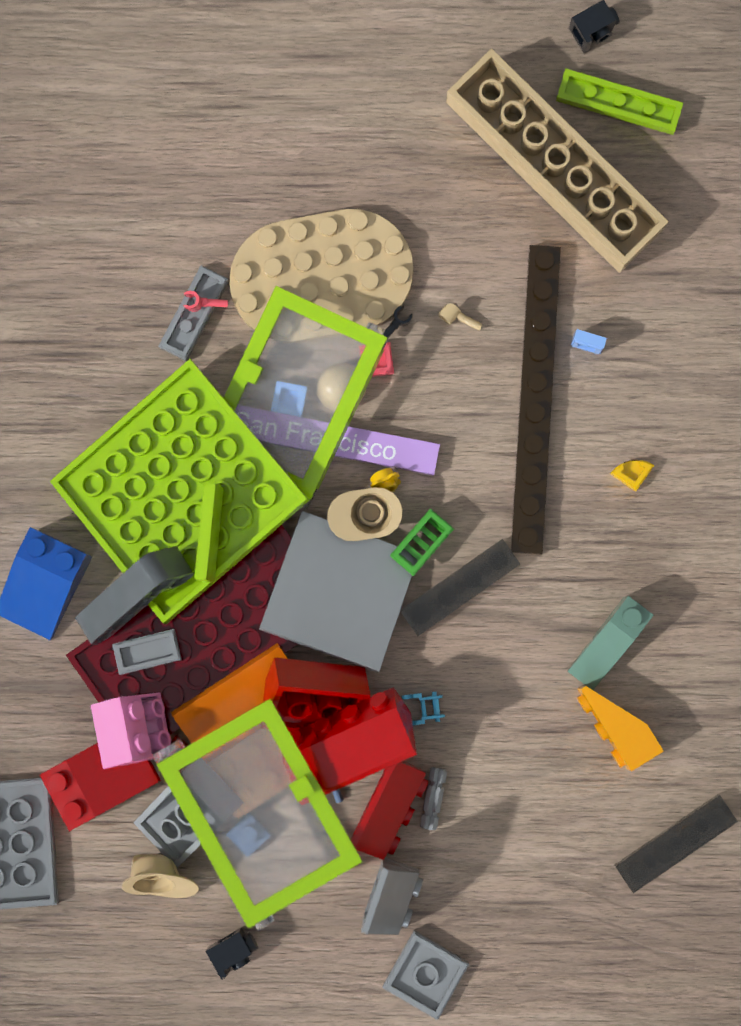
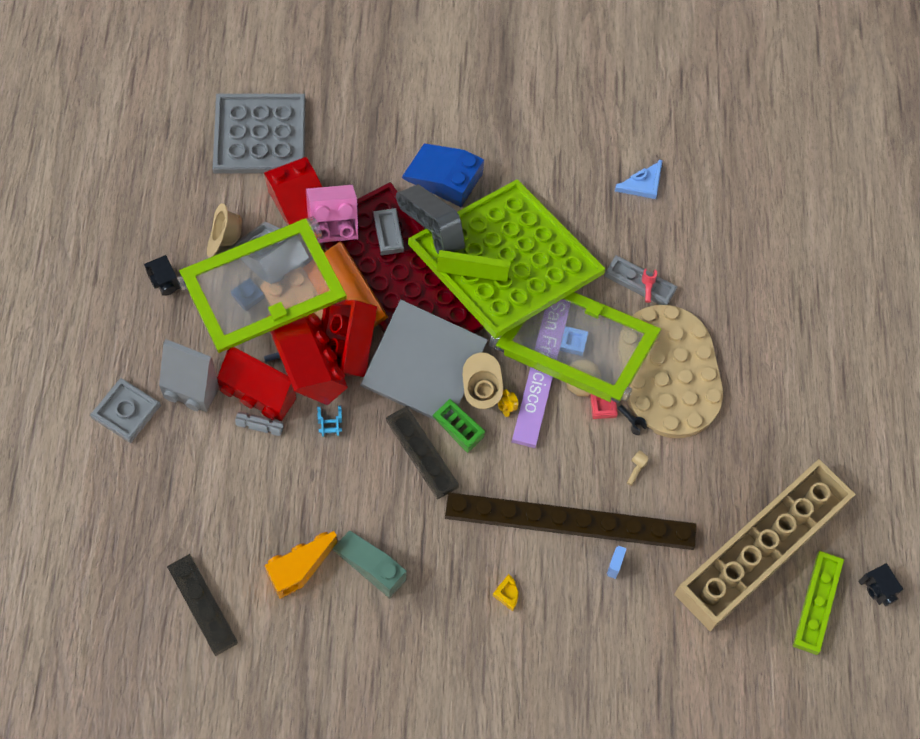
camera: 80 degrees right, 20 degrees down
(40, 308) = (642, 183): none -> light blue tile

